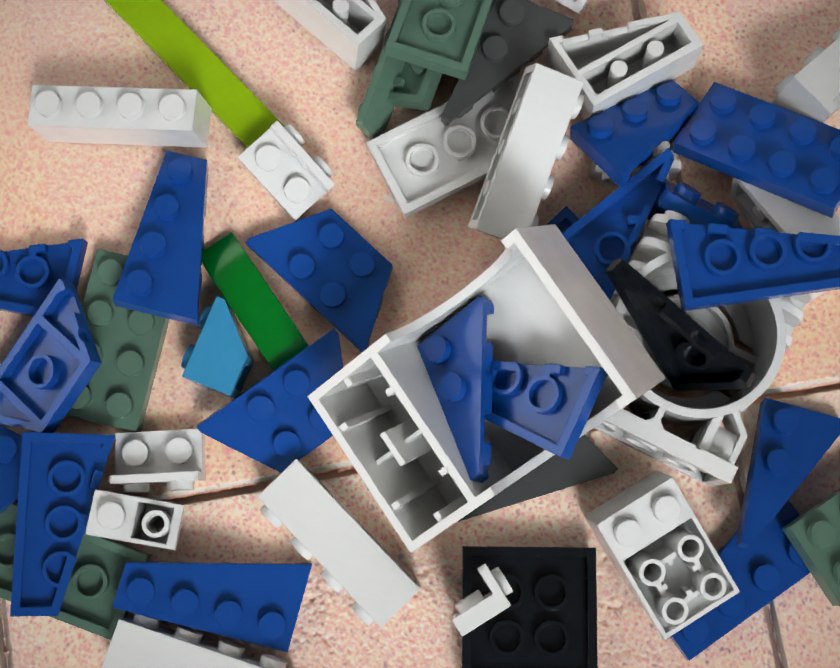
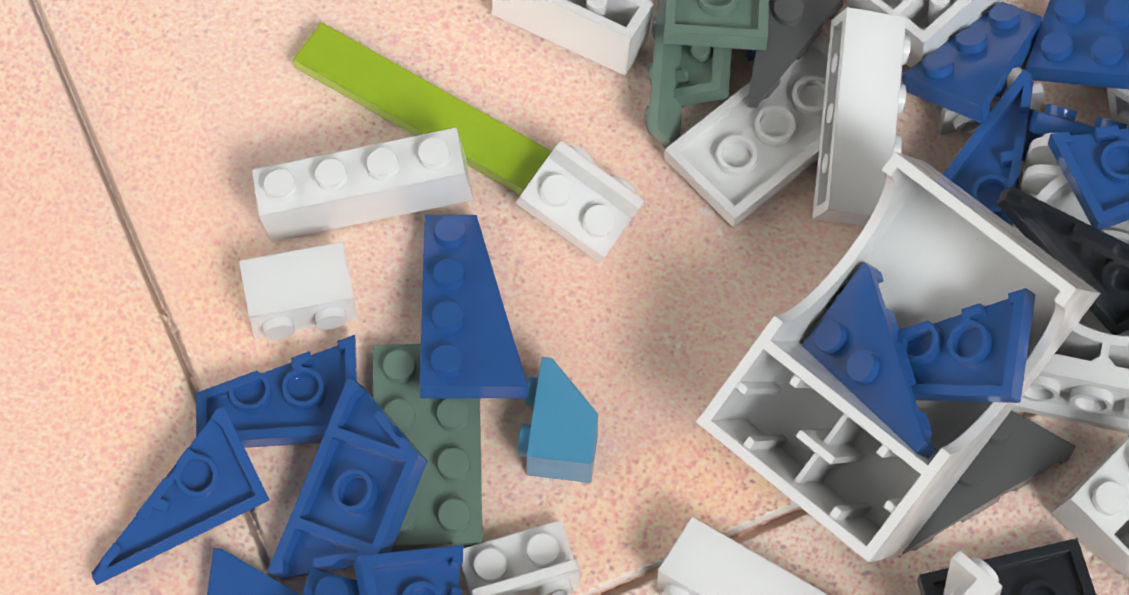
camera: 15 degrees left, 15 degrees down
(50, 191) = (298, 291): none -> white brick
(252, 301) = (598, 371): green slope -> none
(274, 416) = (659, 471): blue wing -> none
(330, 270) = (660, 307): blue wing -> none

